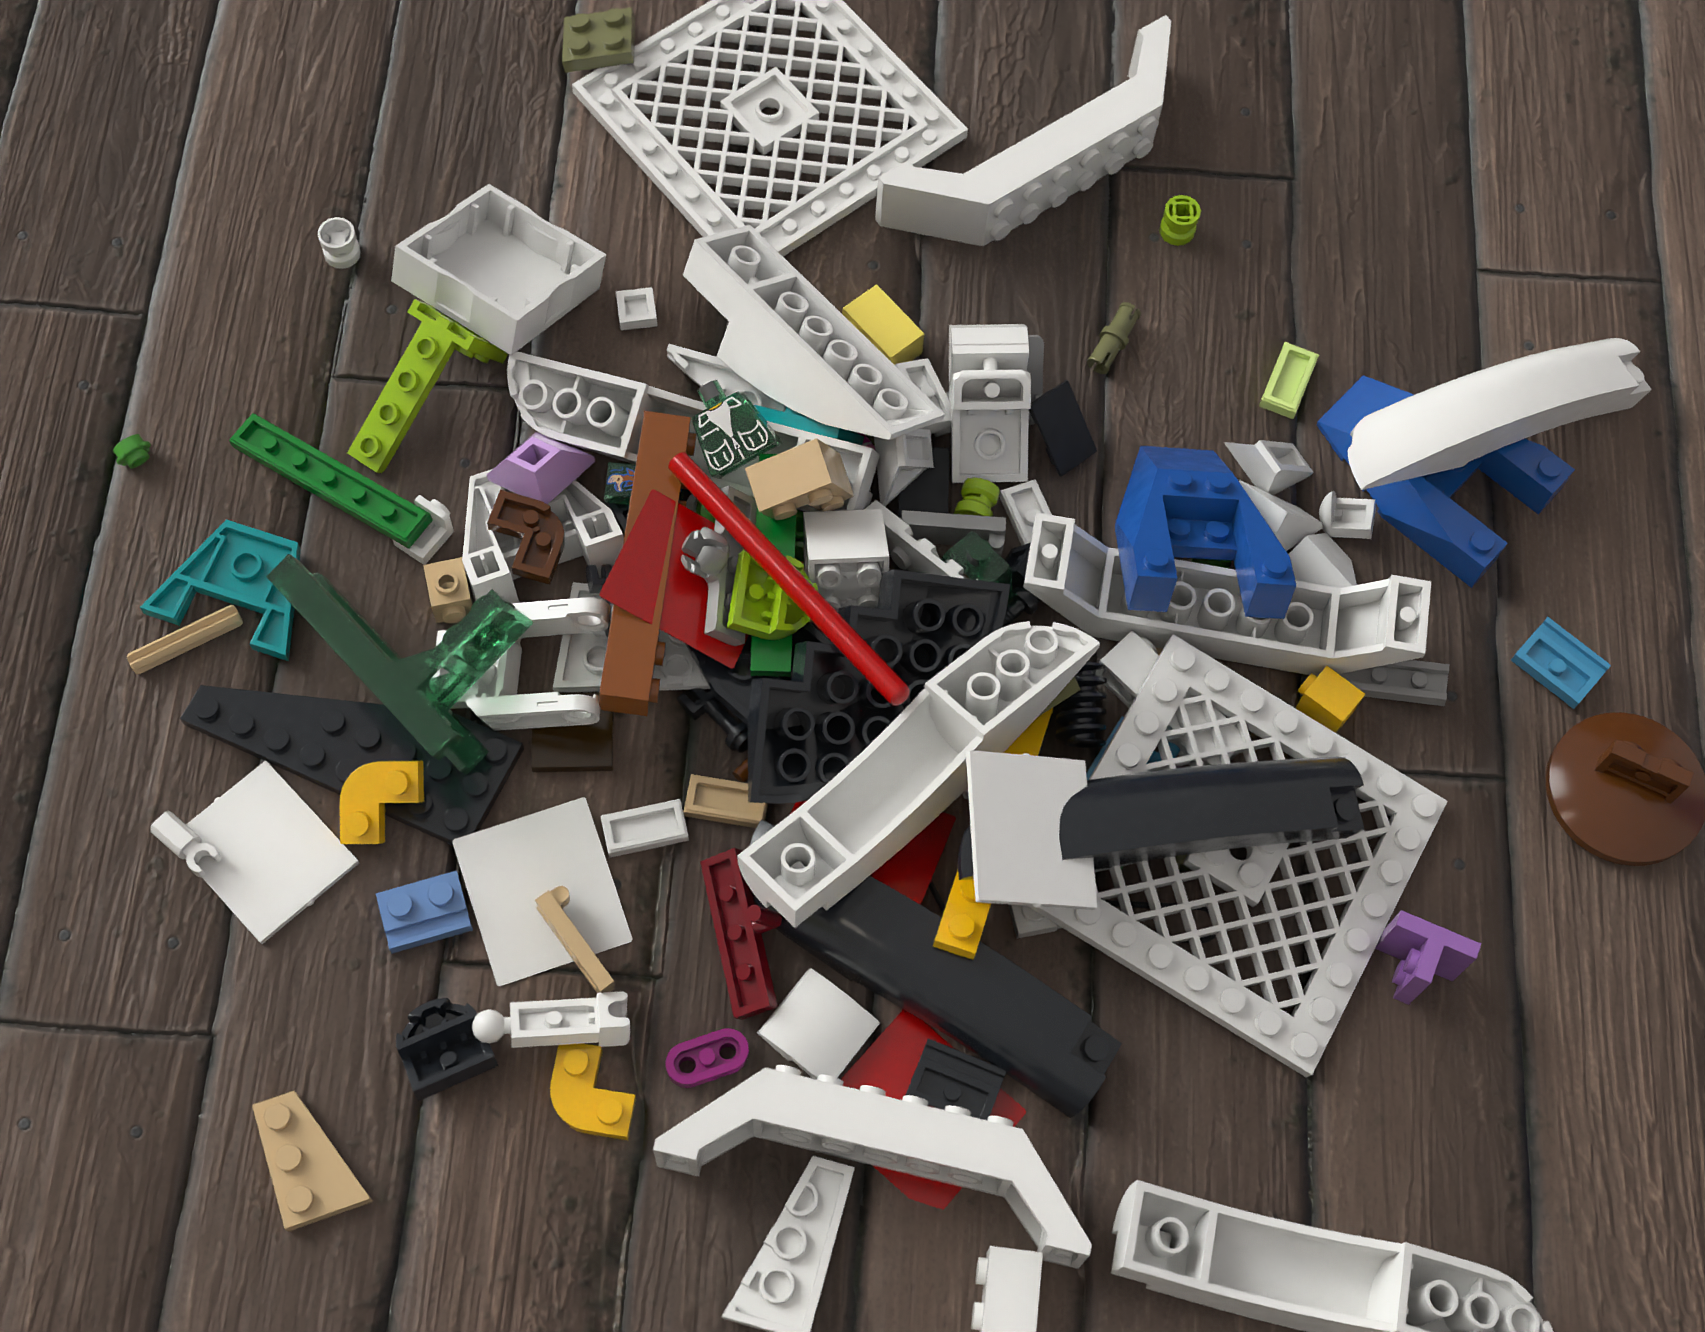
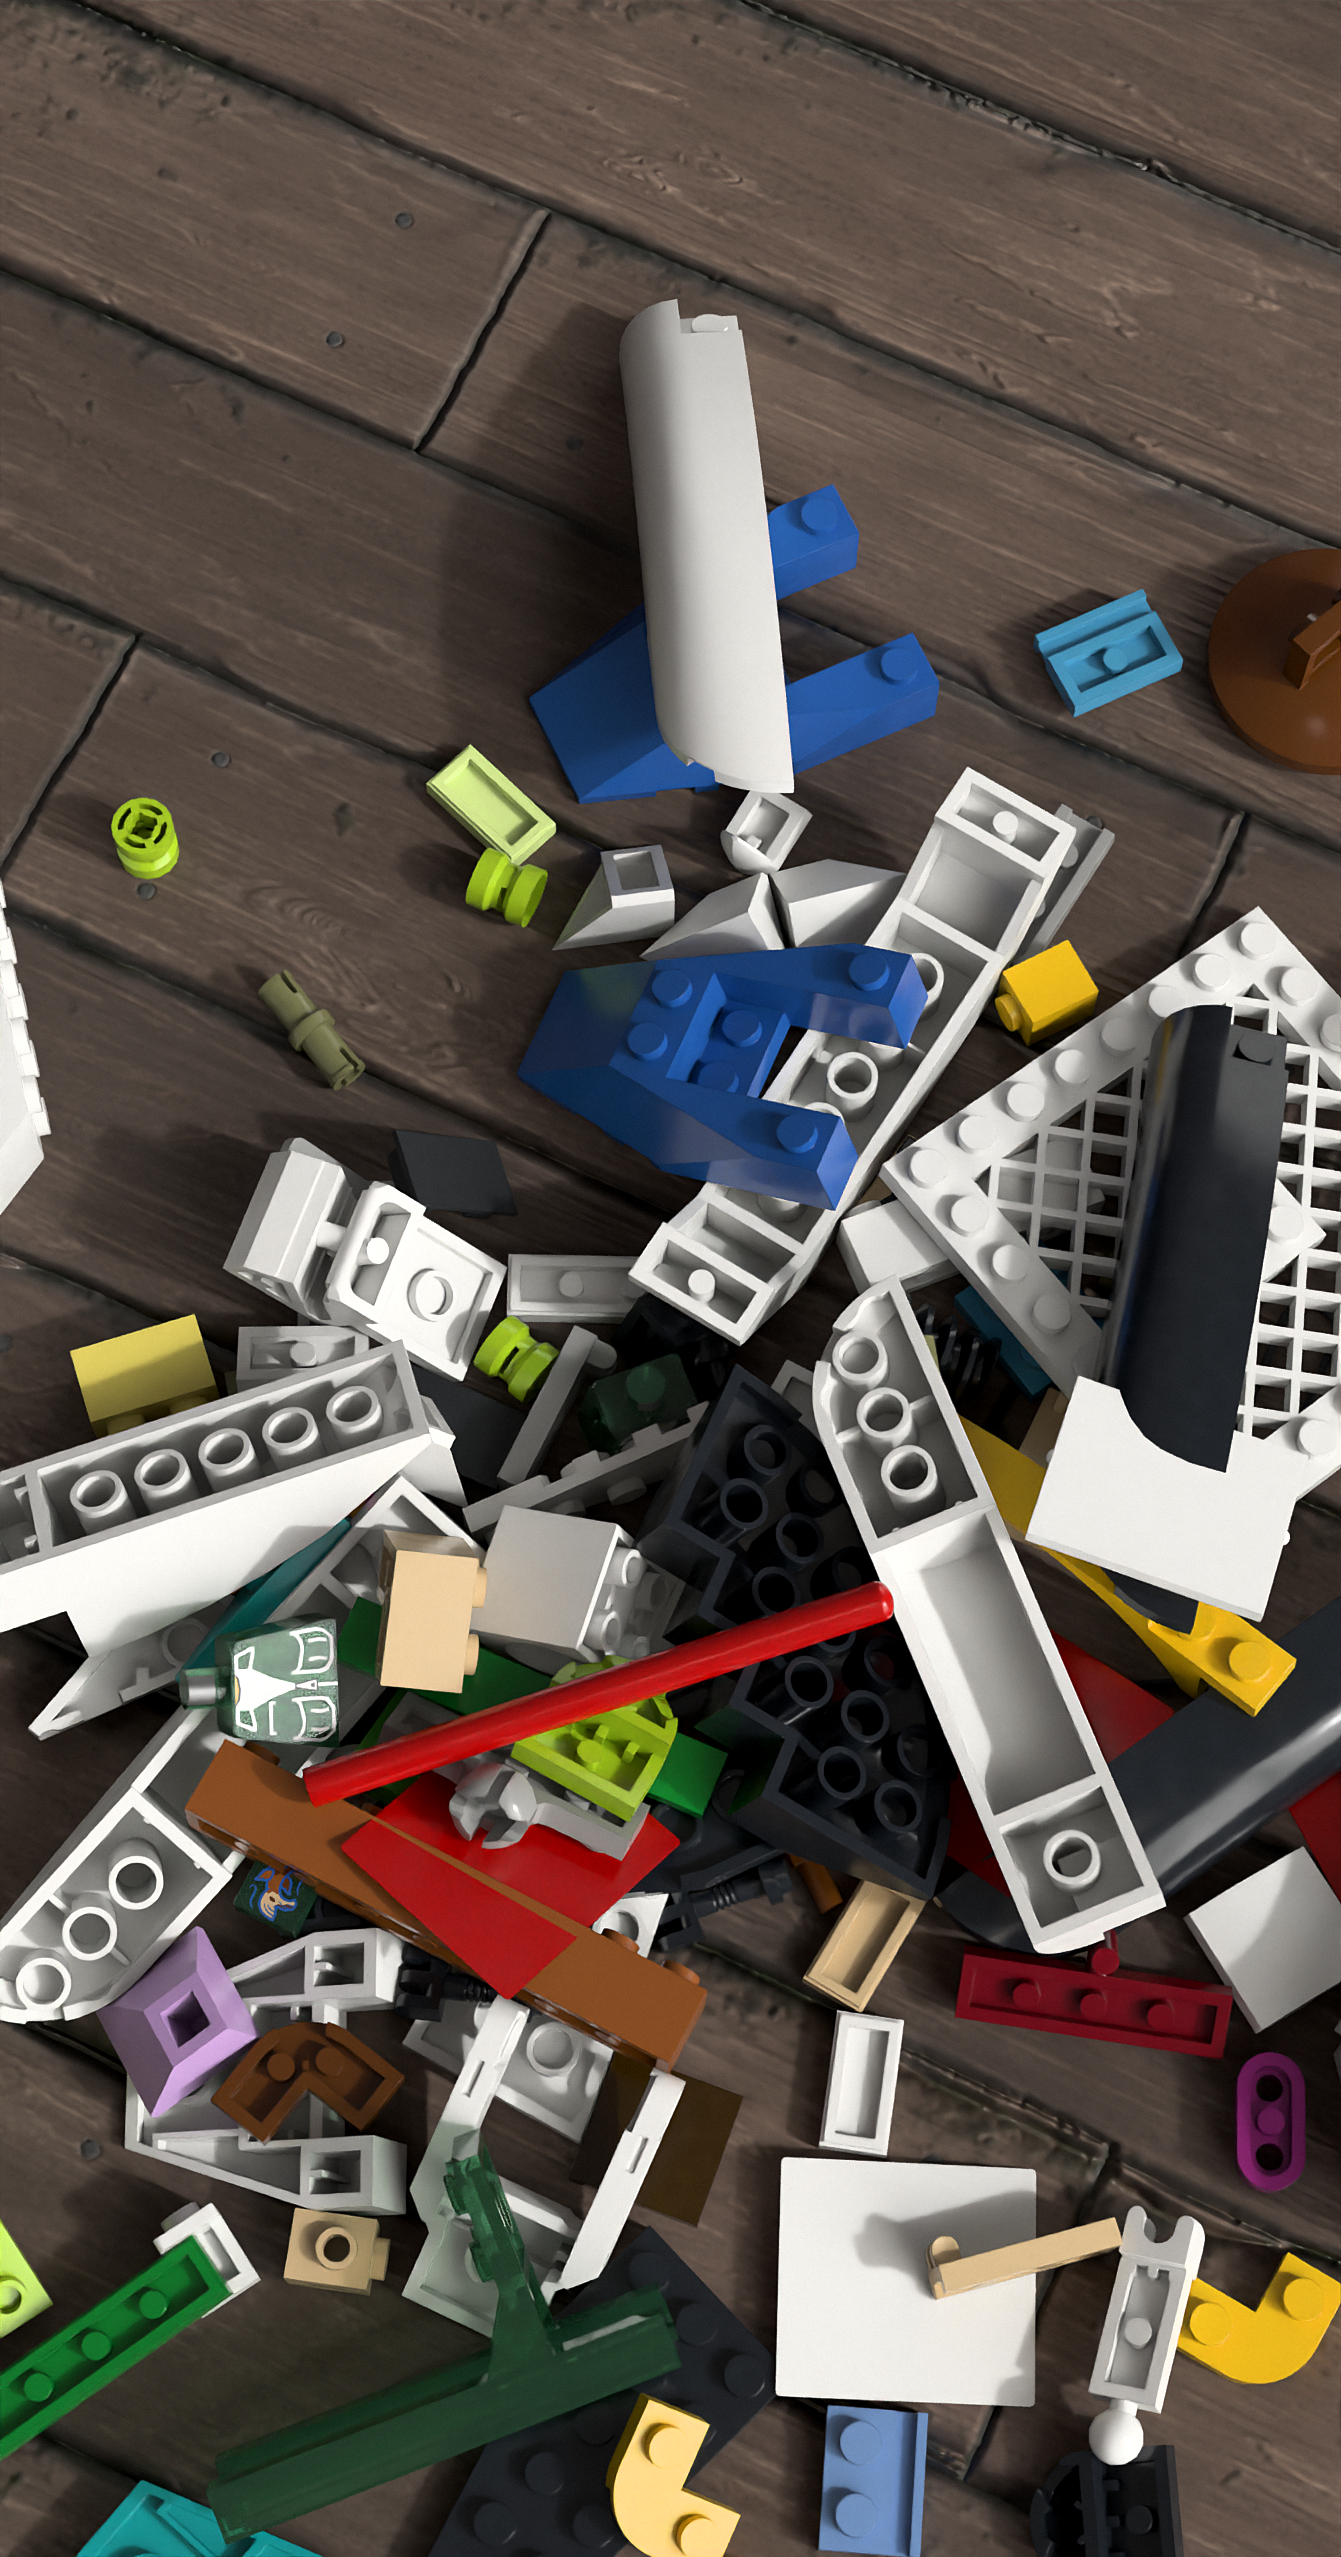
camera: 65 degrees left, 5 degrees up
(1244, 398) = (506, 887): none -> lime wheel

